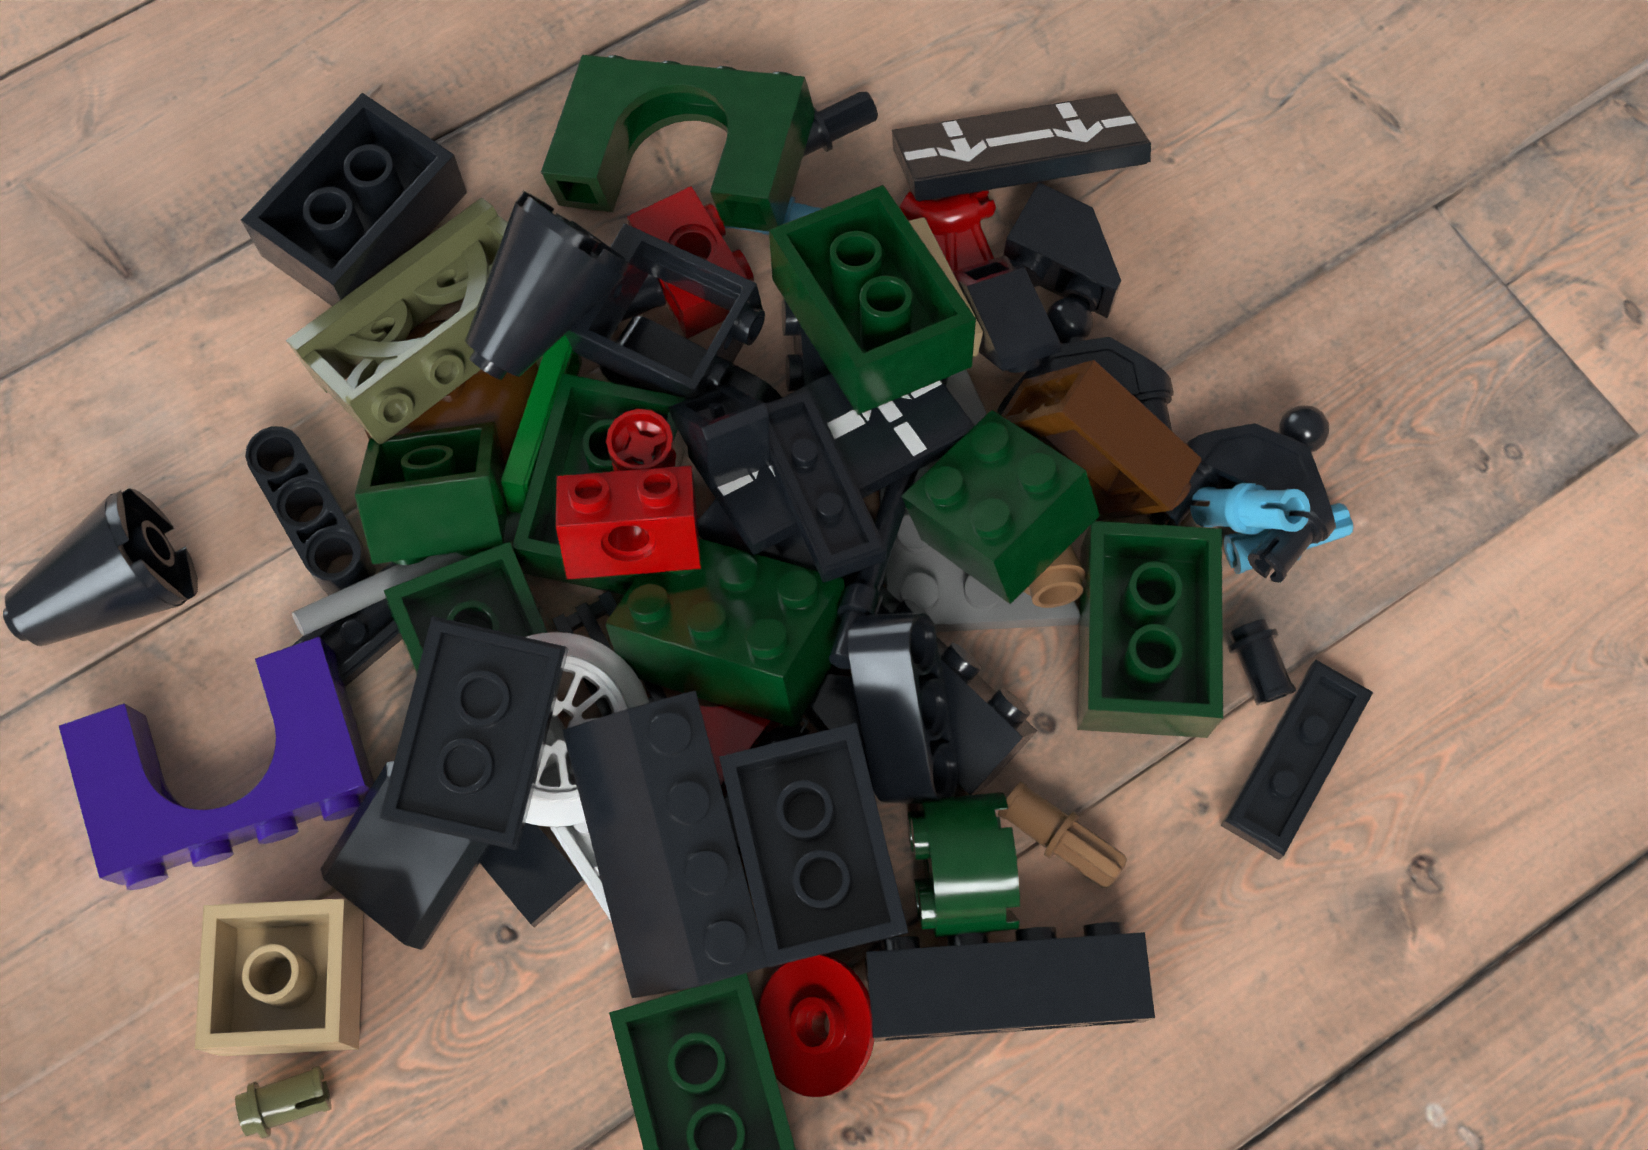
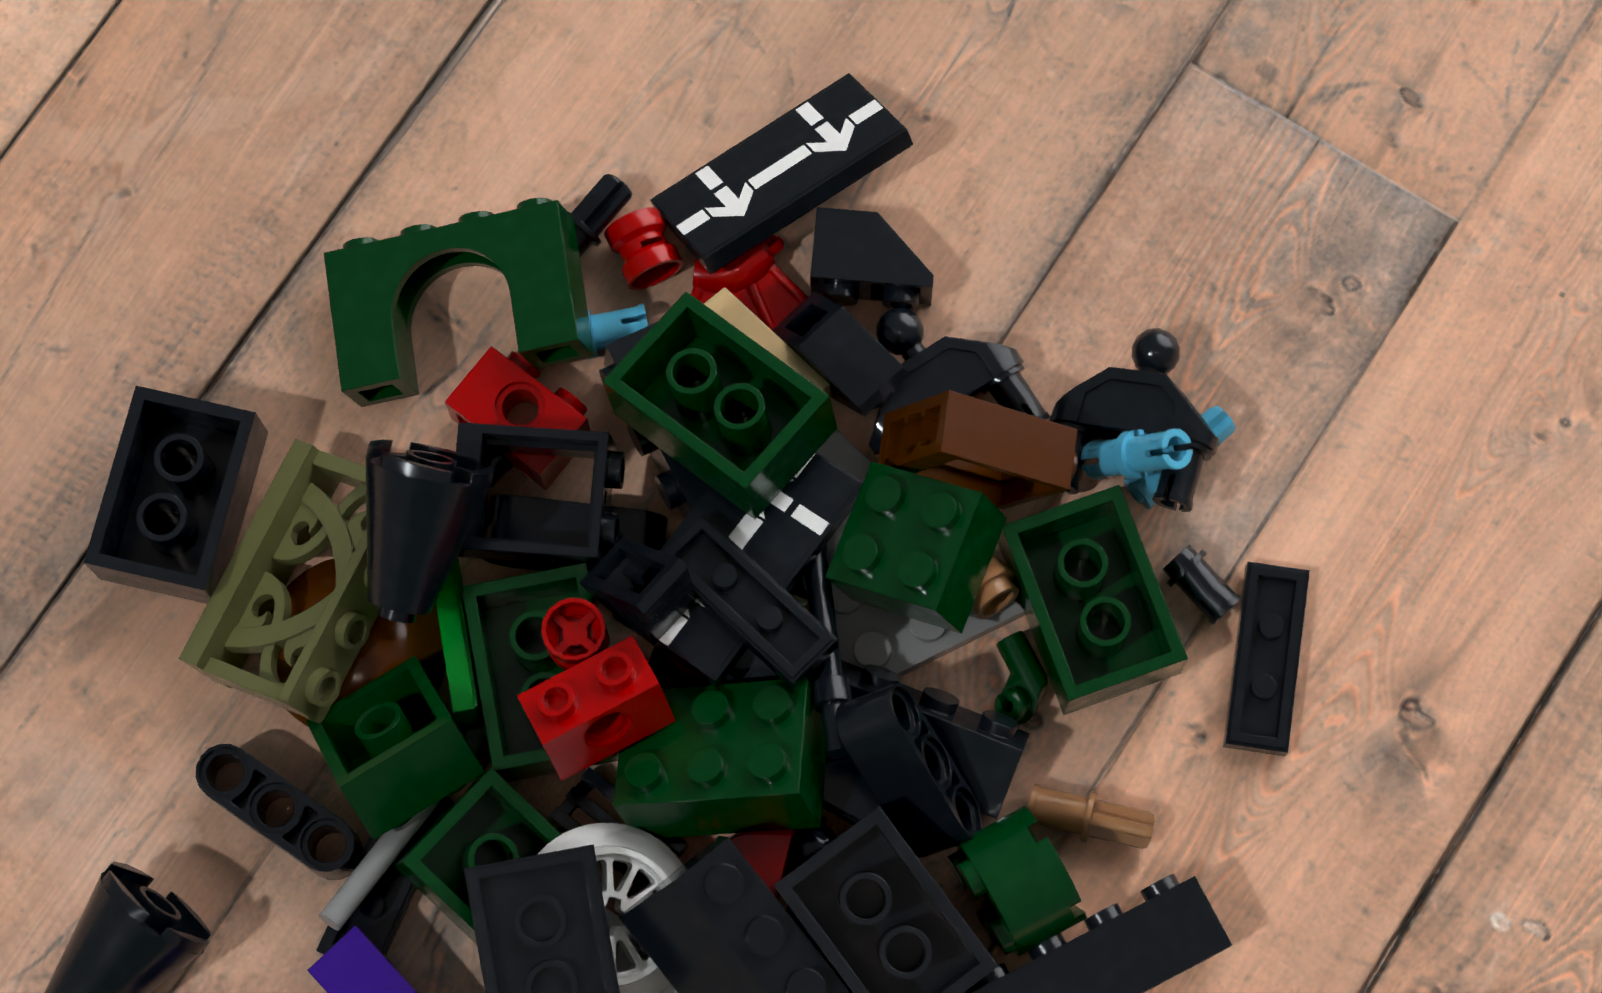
camera: 20 degrees left, 5 degrees up
(867, 159) = (643, 248): none -> red wheel
(1055, 682) = (1026, 679): none -> dark green arm

